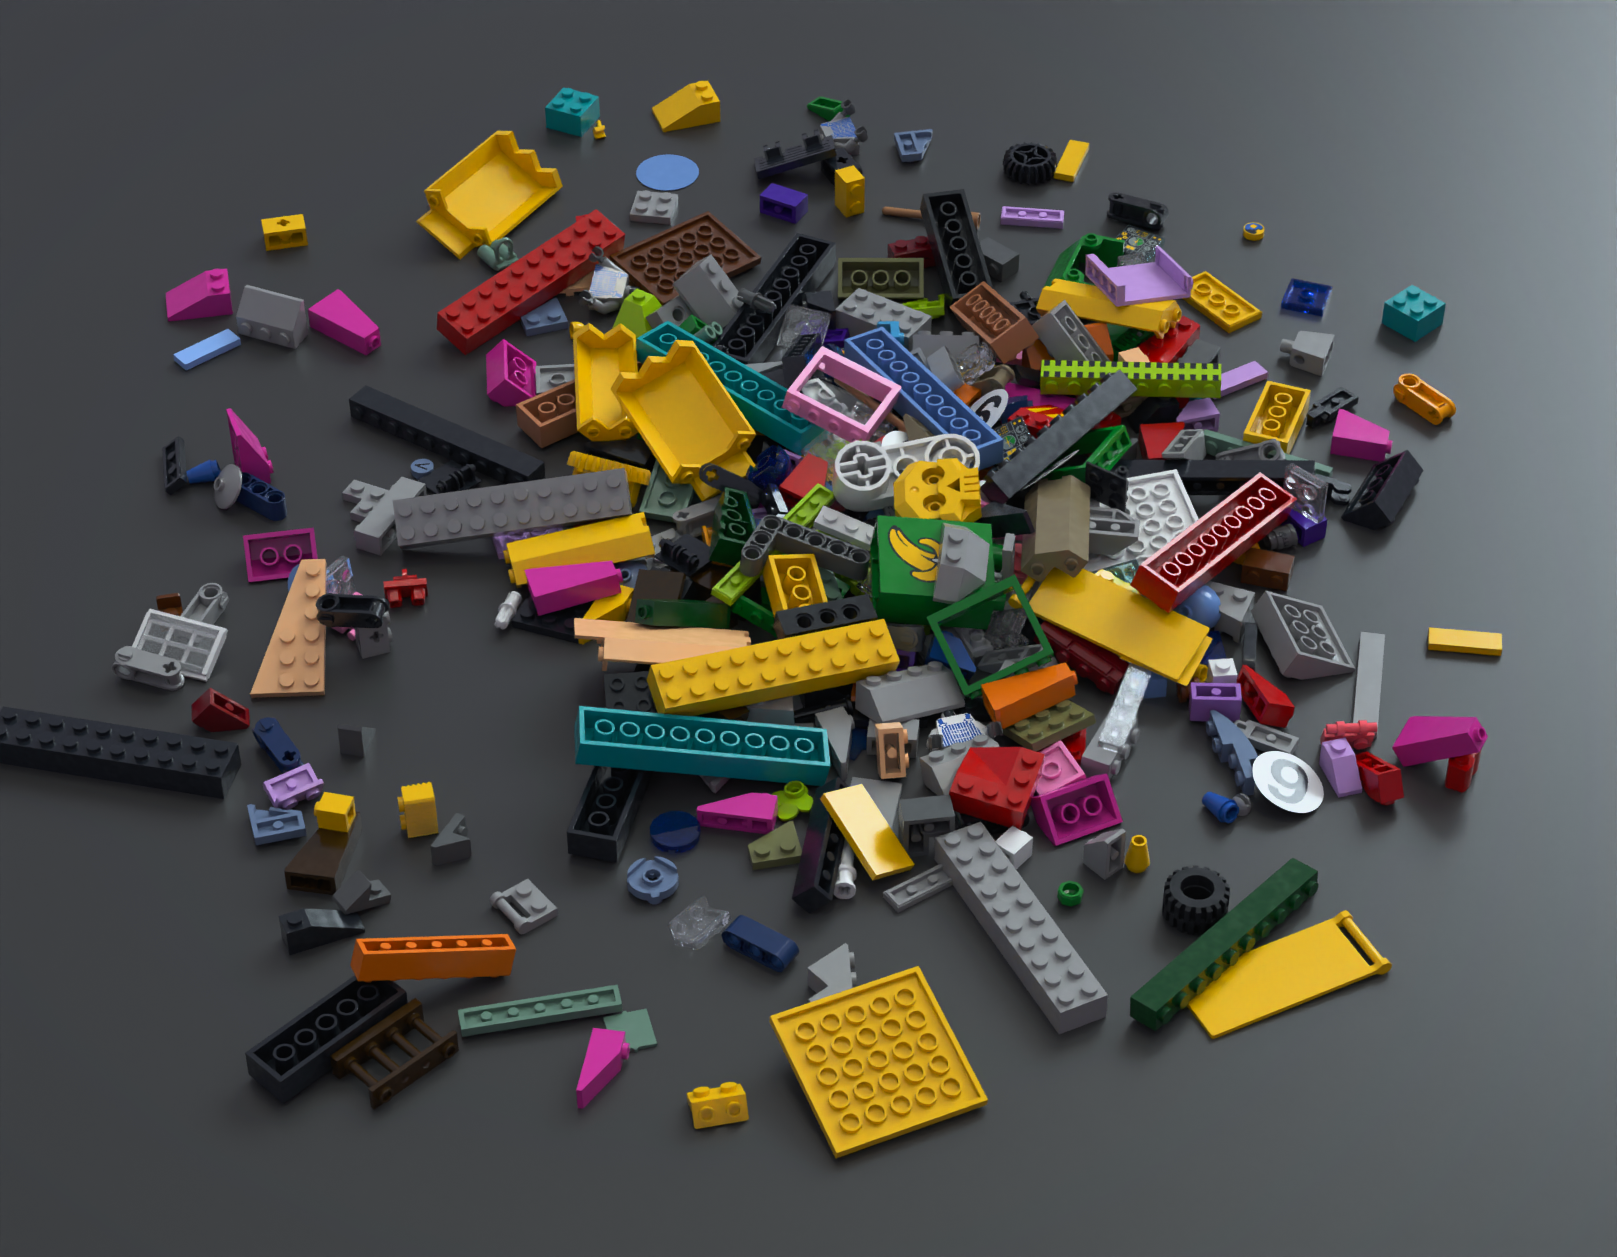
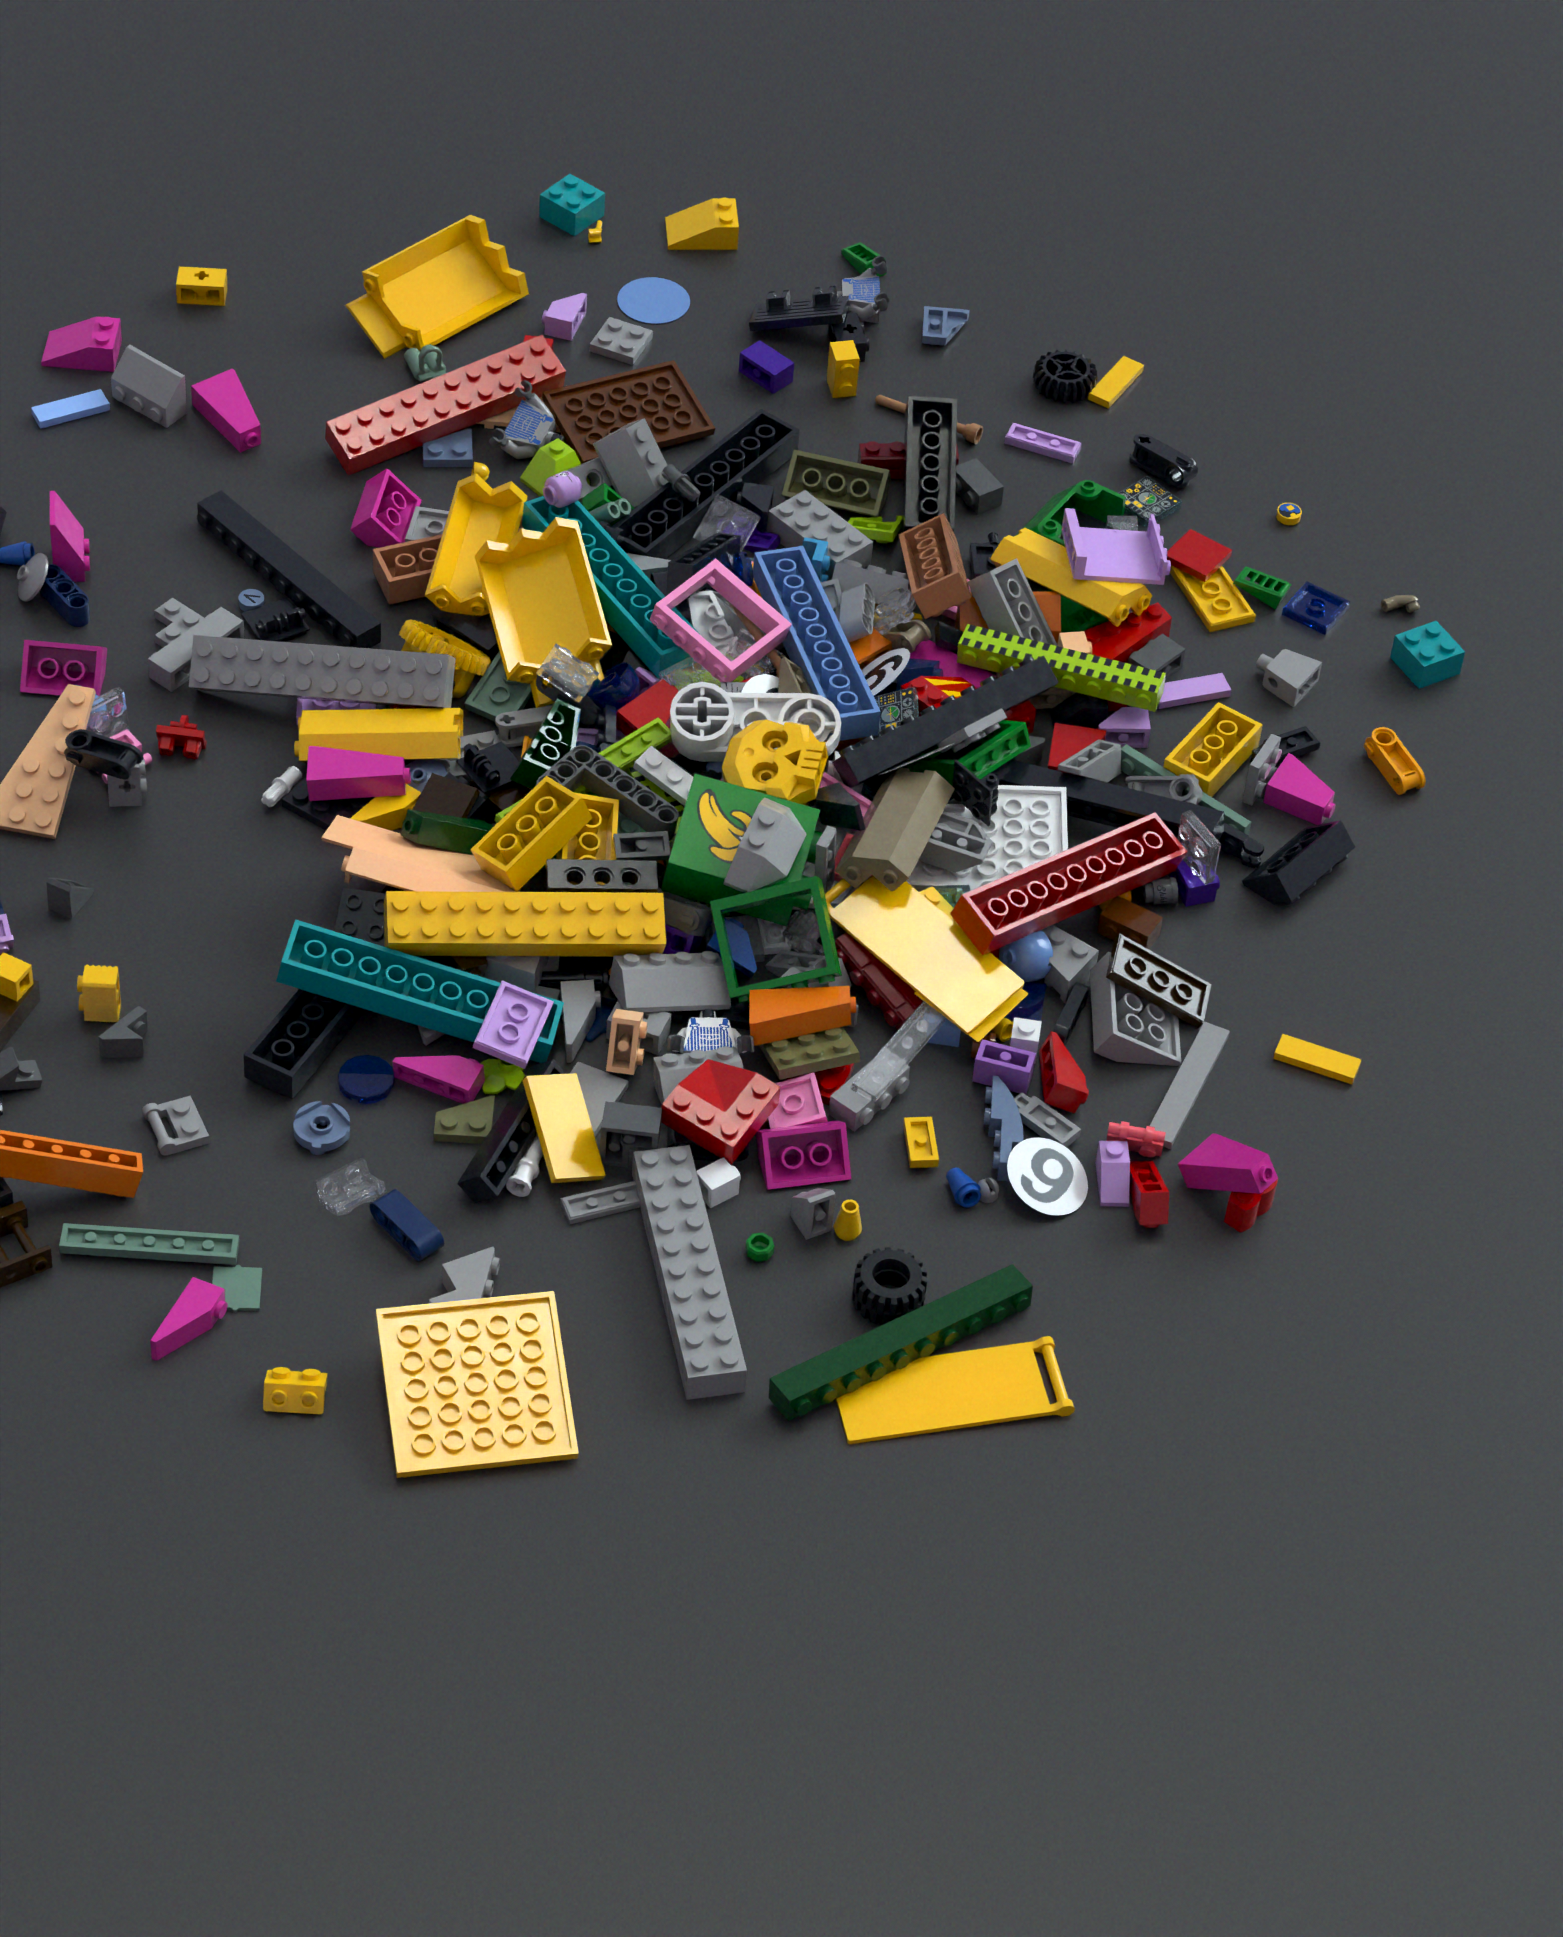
camera: 10 degrees right, 5 degrees up
(601, 196) = (565, 316): none -> lavender slope
(667, 320) = (562, 489): none -> lavender head
(727, 463) = (567, 672): none -> clear plate
(753, 594) = (531, 833): none -> yellow brick
(793, 755) = (513, 1024): none -> lavender tile
(847, 586) = (642, 846): none -> dark grey slope
(1088, 438) = (973, 732): none -> light grey plate
(1169, 778) = (920, 1142): none -> yellow plate
(1204, 274) = (1198, 555): none -> red tile
(1259, 289) = (1270, 589): none -> green slope
(1313, 606) = (1158, 980): none -> dark brown tile
(1324, 426) = (1262, 769): none -> light grey plate
(1371, 278) = (1398, 601): none -> dark tan arm

